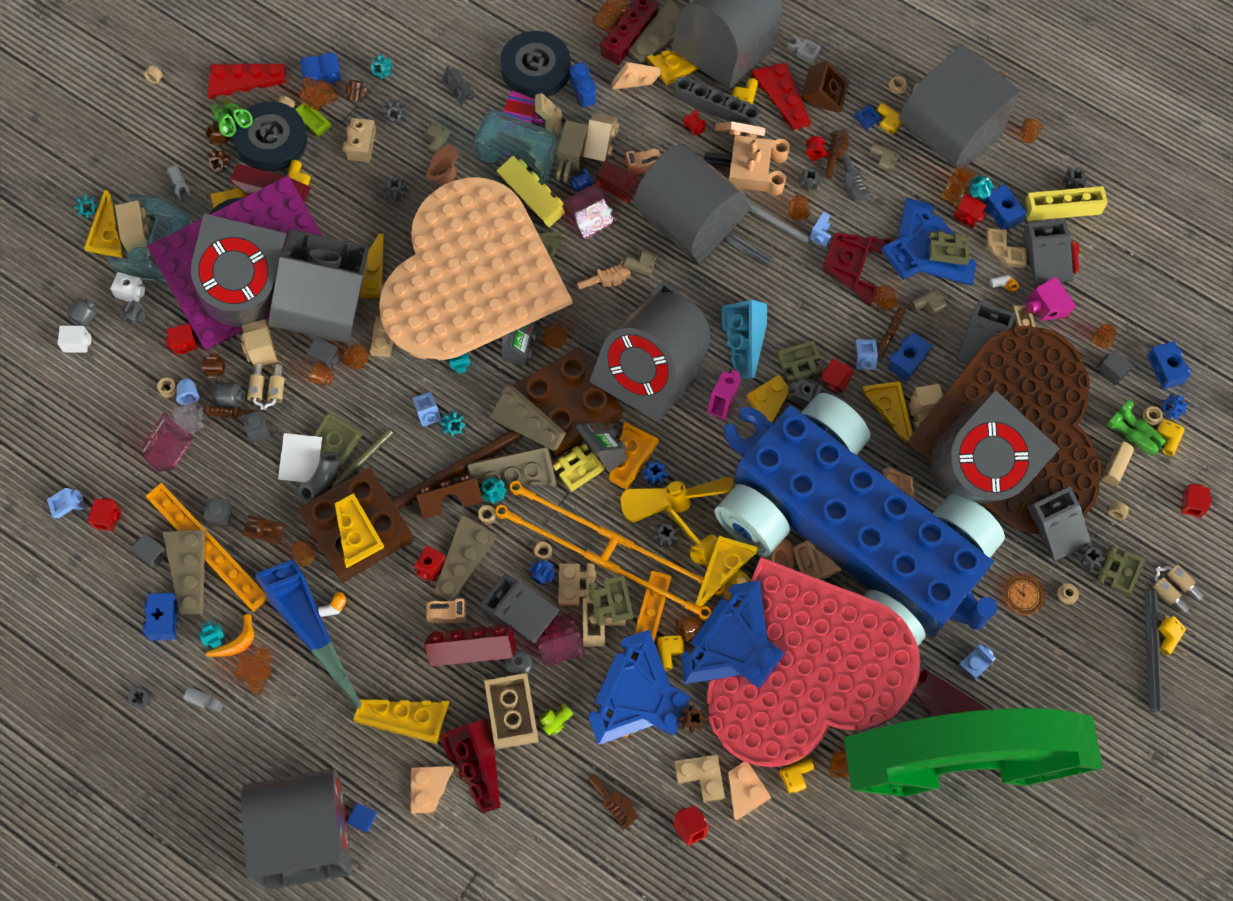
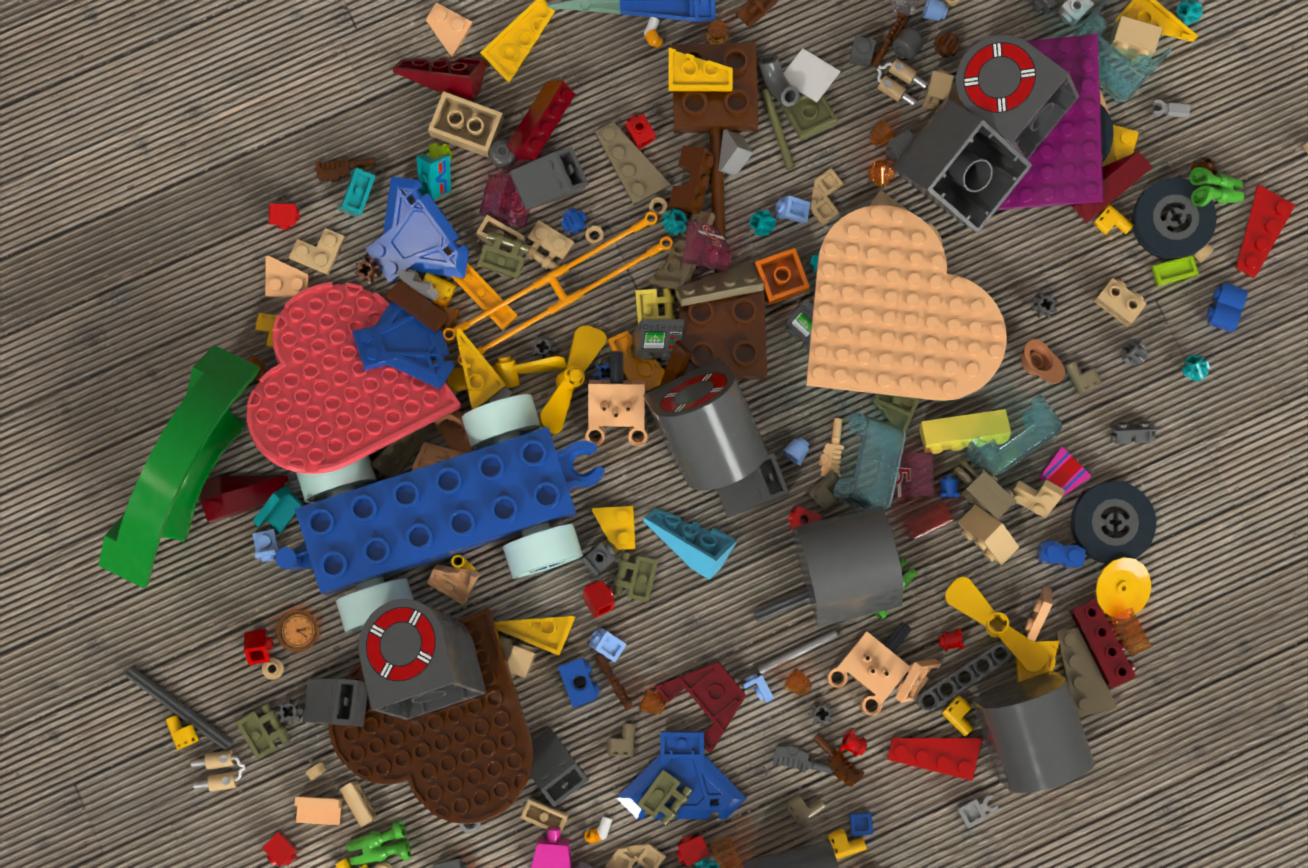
camera: 125 degrees right, 15 degrees up
(181, 339) = (991, 25): red brick -> none
(222, 164) = (1171, 155): reddish brown gear -> none
(317, 93) = (1197, 288): clear orange brick -> none
(354, 90) = (1181, 326): reddish brown gear -> none
(373, 272) = (969, 241): yellow wing -> none
(393, 397) = (823, 187): none -> tan tile
(403, 478) = (733, 153): none -> light grey slope
(446, 611) = (588, 123): light nougat leg -> none
(487, 381) = (782, 276): none -> orange brick
(503, 445) = (706, 247): none -> clear pink slope
(554, 336) = (795, 364): clear orange gear -> none
(574, 237) = (876, 464): none -> clear light blue windscreen
(575, 710) = (434, 175): none -> teal panel
(580, 34) = (1123, 586): none -> yellow piece
(622, 417) = (676, 364): none -> reddish brown tile
(623, 300) = (796, 450): none -> light blue hat
(630, 767) = (357, 192): none -> teal panel
(641, 162) = (937, 562): light nougat leg -> none
(657, 126) = (968, 600): none -> yellow piece
(675, 265) = (802, 516): none -> red brick
(677, 446) = (616, 403): none -> light nougat piece
(678, 670) = (421, 286): none -> light grey slope
(698, 652) = (417, 306): none -> reddish brown tile
(726, 388) = (638, 477): dark pink torso -> none
(825, 87) = (917, 800): reddish brown slope -> none
(943, 665) = (278, 509): none -> teal panel
(1061, 612) = (257, 646): none -> red brick
(1143, 492) = (318, 810): none -> light nougat panel

